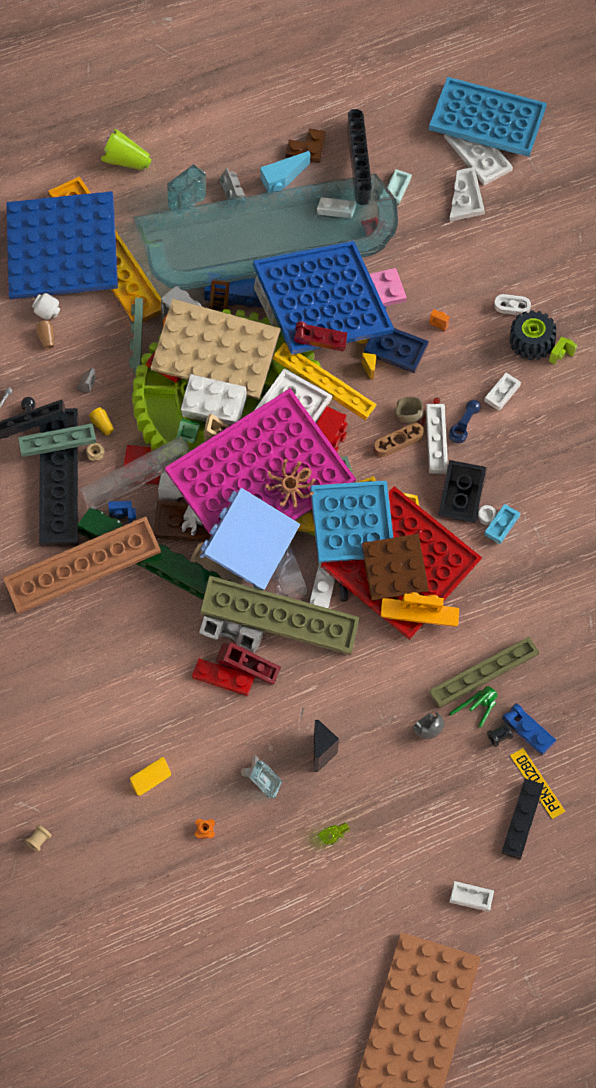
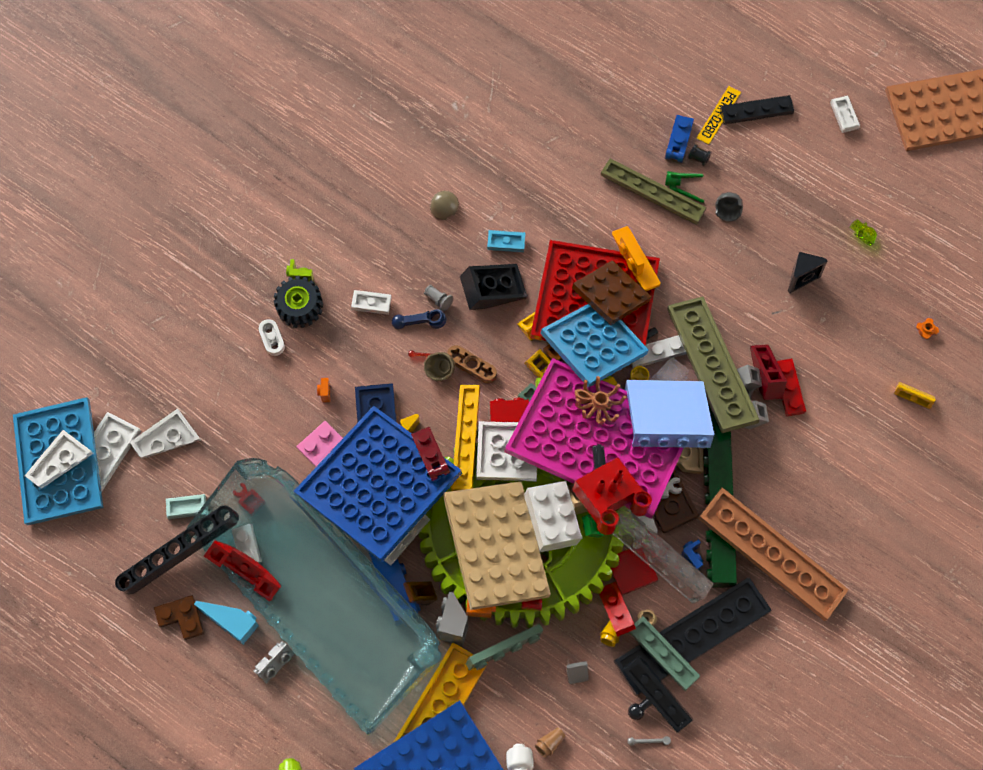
camera: 115 degrees left, 5 degrees up
(114, 426) = (616, 609): none -> red plate
(187, 188) = (307, 697): clear light blue brick -> none
(204, 439) = (609, 489): none -> red piece
(263, 777) = (862, 303): clear light blue piece -> none
(303, 553) = (639, 373): none -> yellow wheel
(318, 197) = (244, 566): none -> red slope
(436, 438) = (452, 333): white tile -> none
(475, 444) = (440, 299): none -> light grey pin
(485, 111) = (58, 458): none -> white wing
(486, 514) = (502, 257): white tile -> none
(569, 495) = (444, 204): none -> dark tan hair

